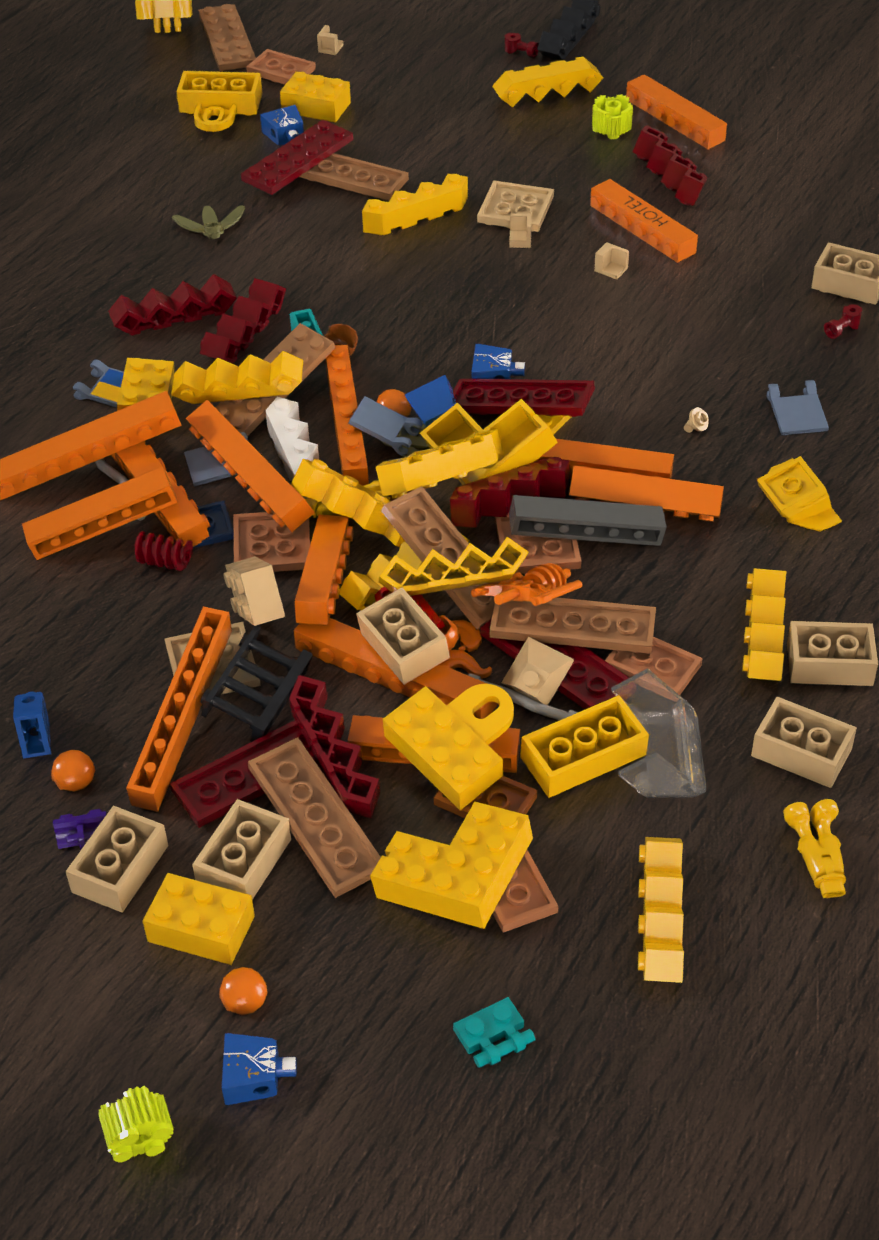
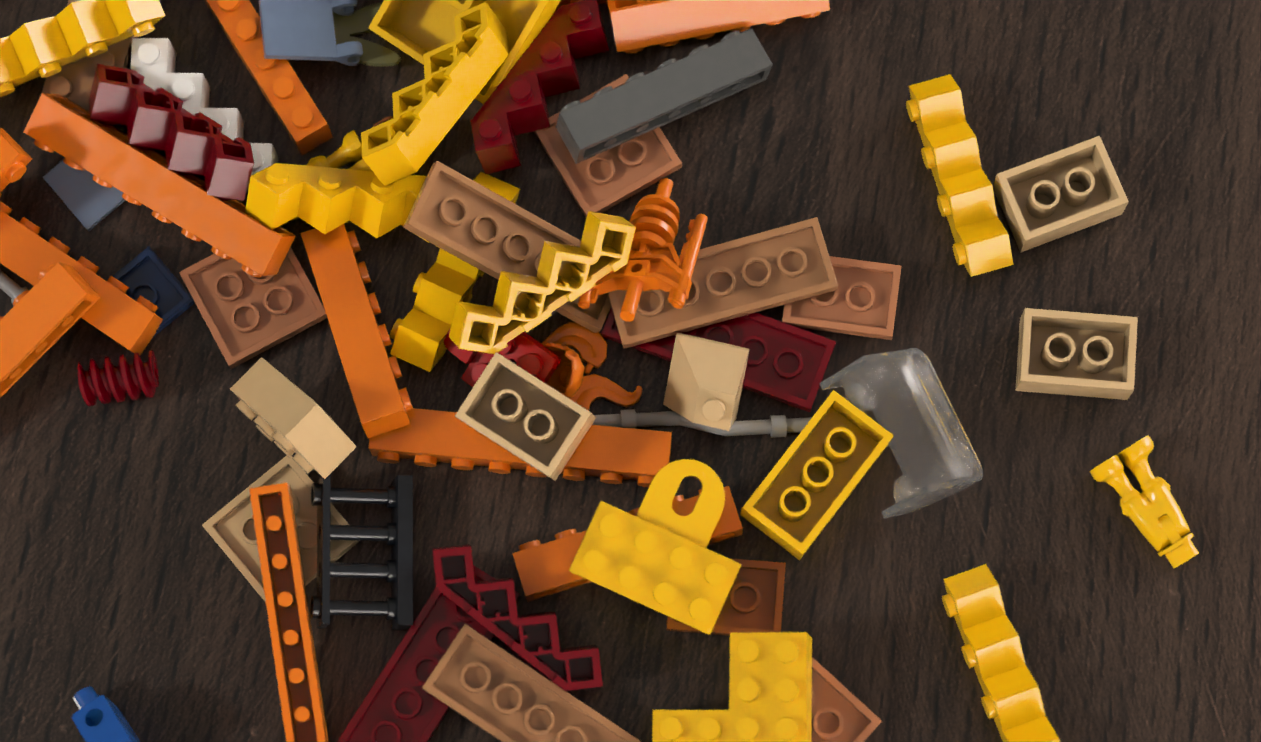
camera: 20 degrees left, 30 degrees up
(269, 436) = (161, 123): none -> dark red brick

